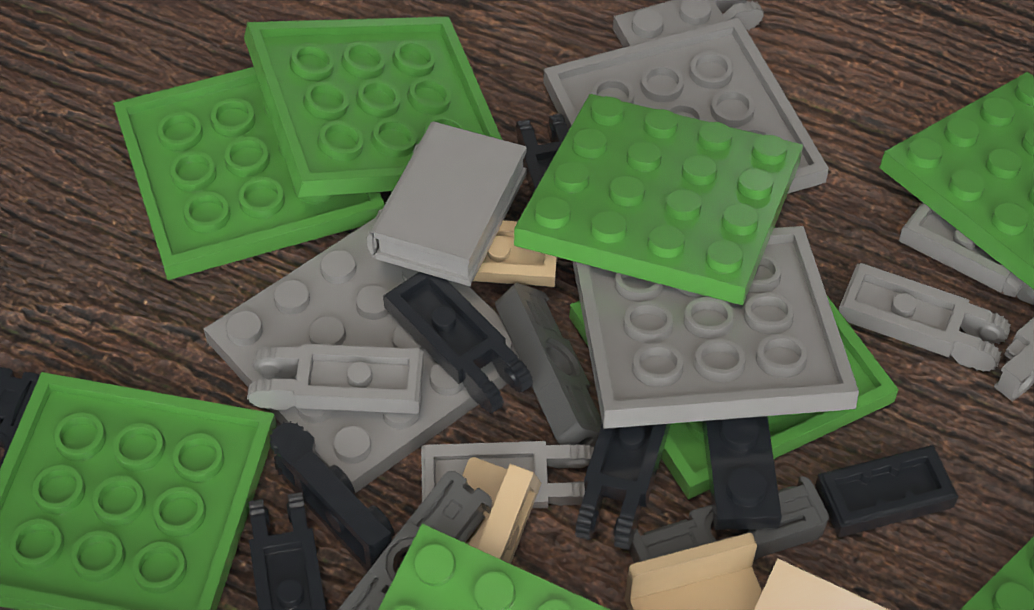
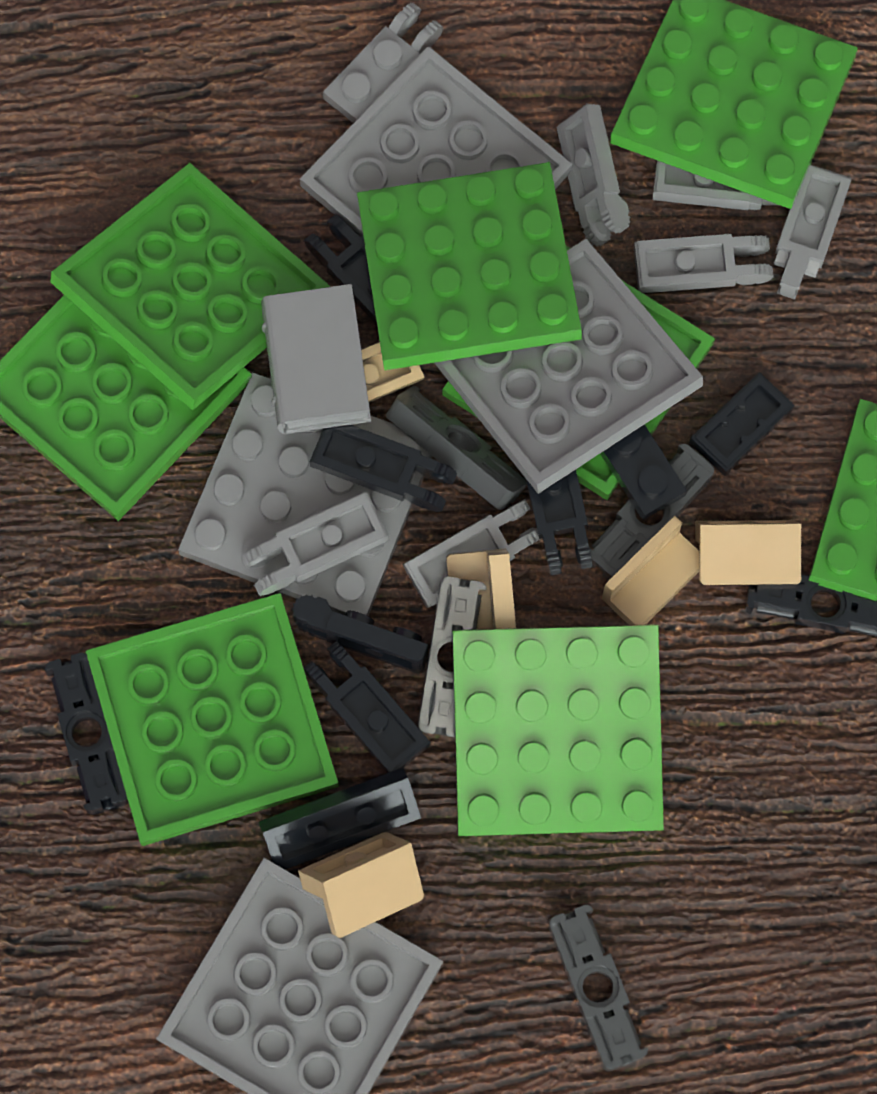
camera: 30 degrees left, 20 degrees up
(845, 192) = (593, 175): none -> light grey hinge

